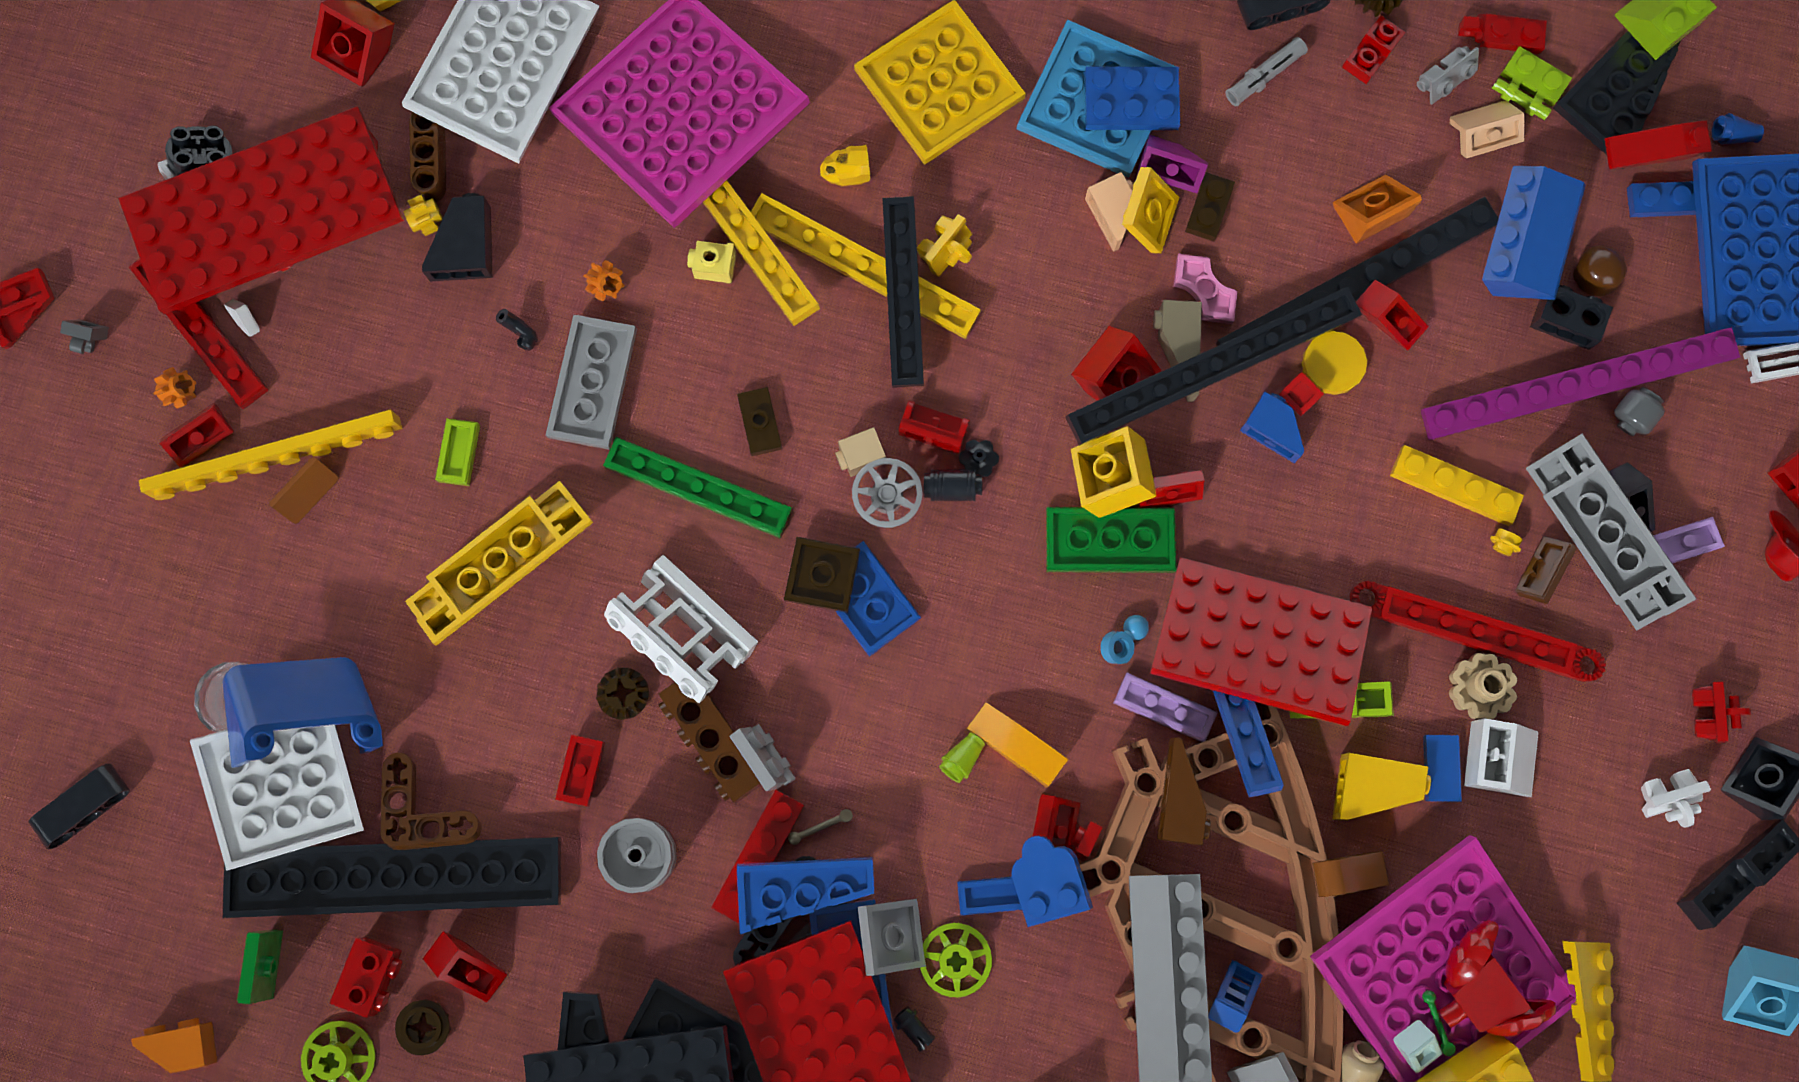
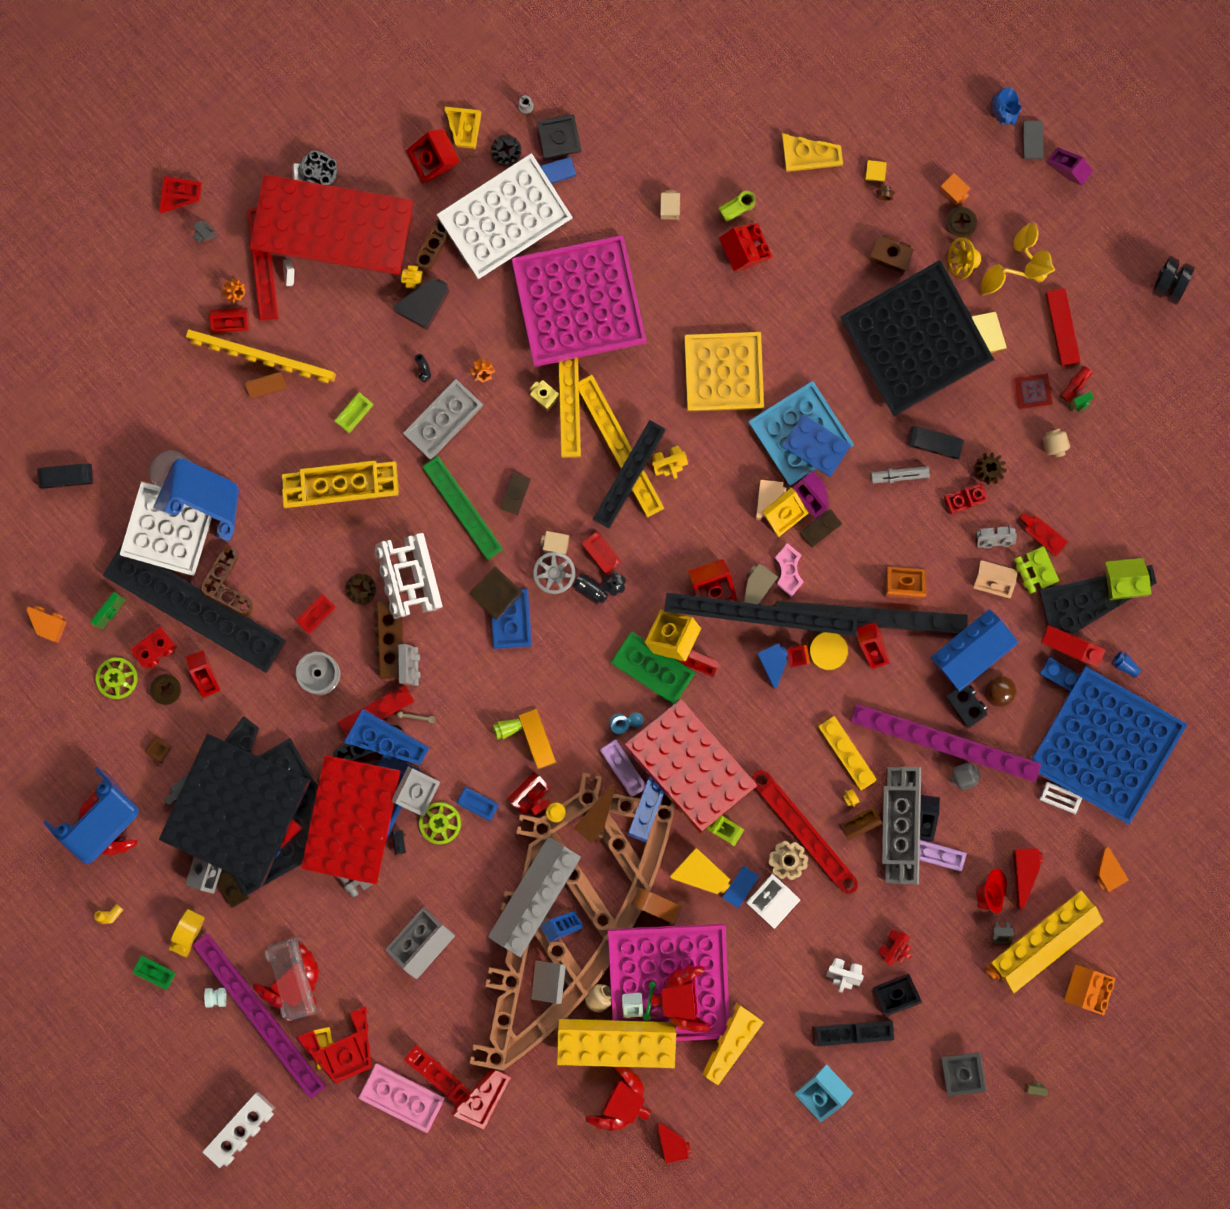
camera: 40 degrees right, 5 degrees up
(847, 166) = (645, 387): yellow rock -> none
(1049, 882) = (508, 814): blue plate -> none
(1117, 832) = (556, 812): none -> yellow plate

